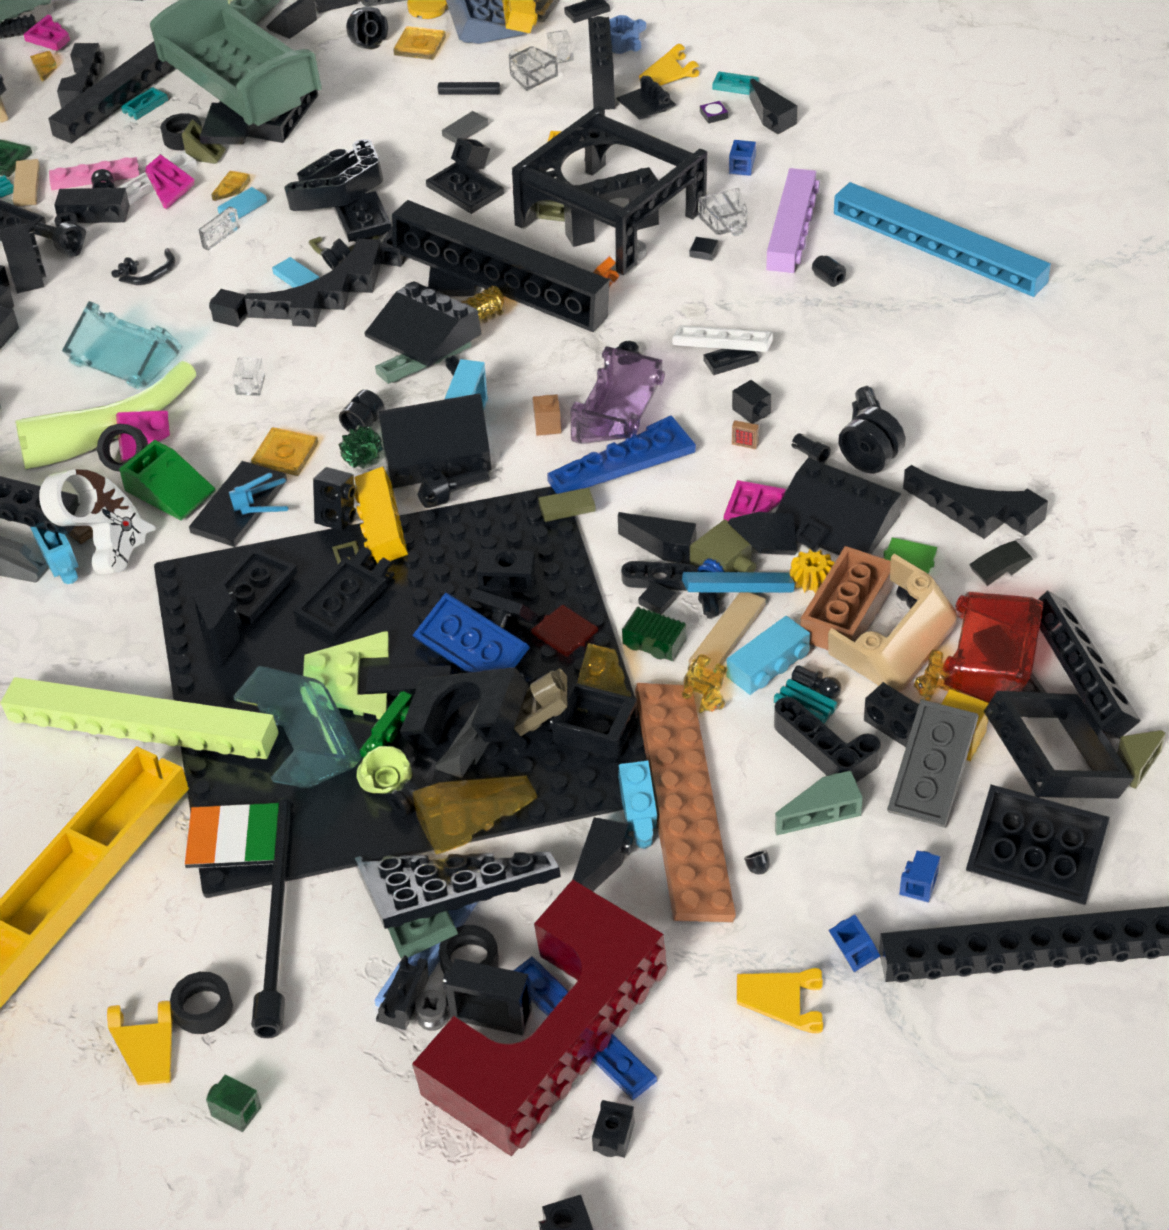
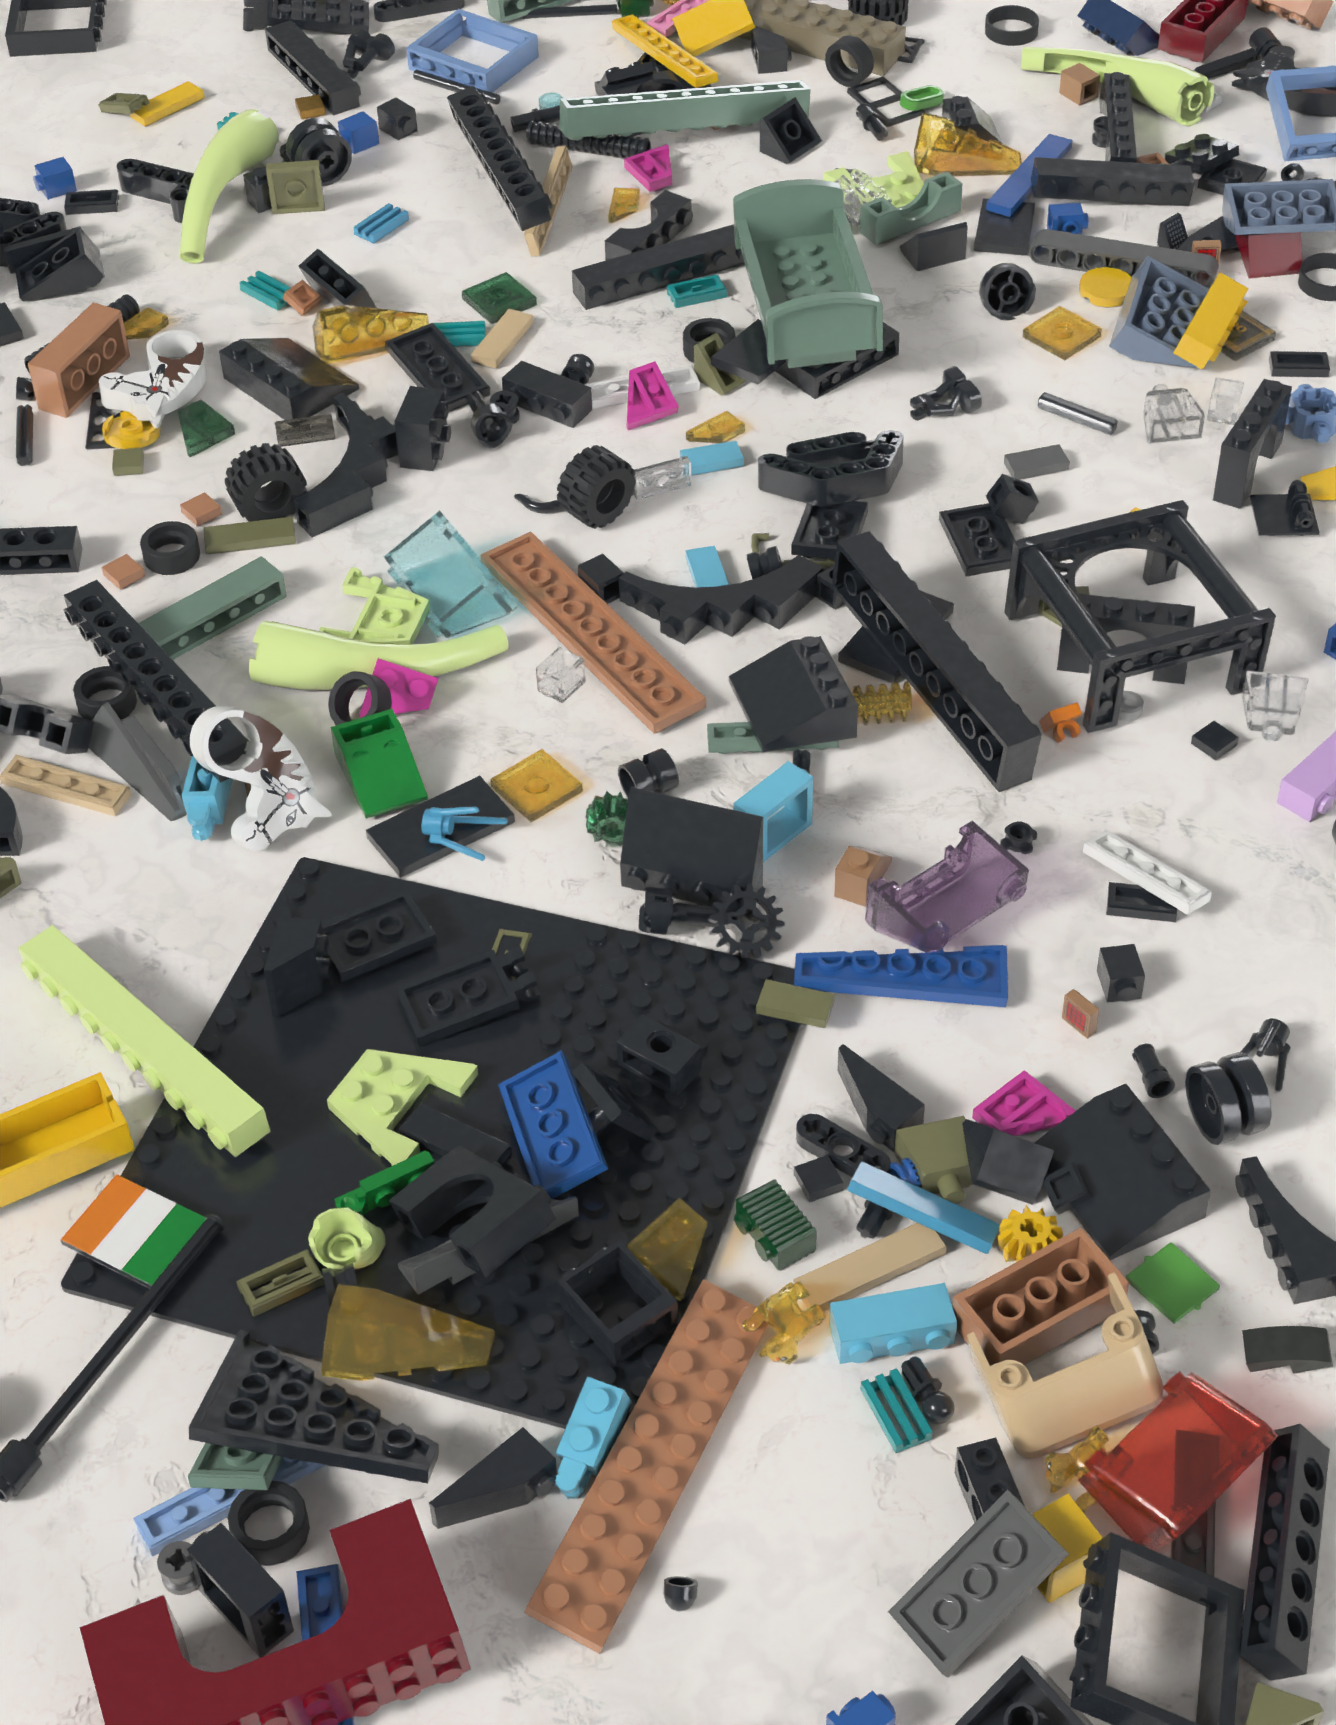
camera: 30 degrees right, 0 degrees up
(81, 174) = (558, 351): bright pink plate -> none
(90, 387) = (388, 615): none -> yellowish green wing
(128, 266) = (526, 485): black hair -> none
(183, 247) = (596, 486): none -> black tyre
(238, 337) = (594, 632): none -> nougat plate
(311, 723) = (311, 1141): clear light blue windscreen -> none
(334, 498) = (532, 870): black brick -> none
(363, 820) = (282, 1287): none -> olive tile
(377, 98) = (957, 387): none -> black piece
(380, 515) = (571, 916): yellow brick -> none
(401, 997) = (171, 1523): black hinge -> none
(498, 459) = (746, 906): none -> black gear
(542, 700) = (566, 1246): dark tan plate -> none
(564, 630) = (675, 1165): clear red piece -> none
(822, 745) = (871, 1471): black beam -> none
(824, 802) = (814, 1558): sand green slope -> none

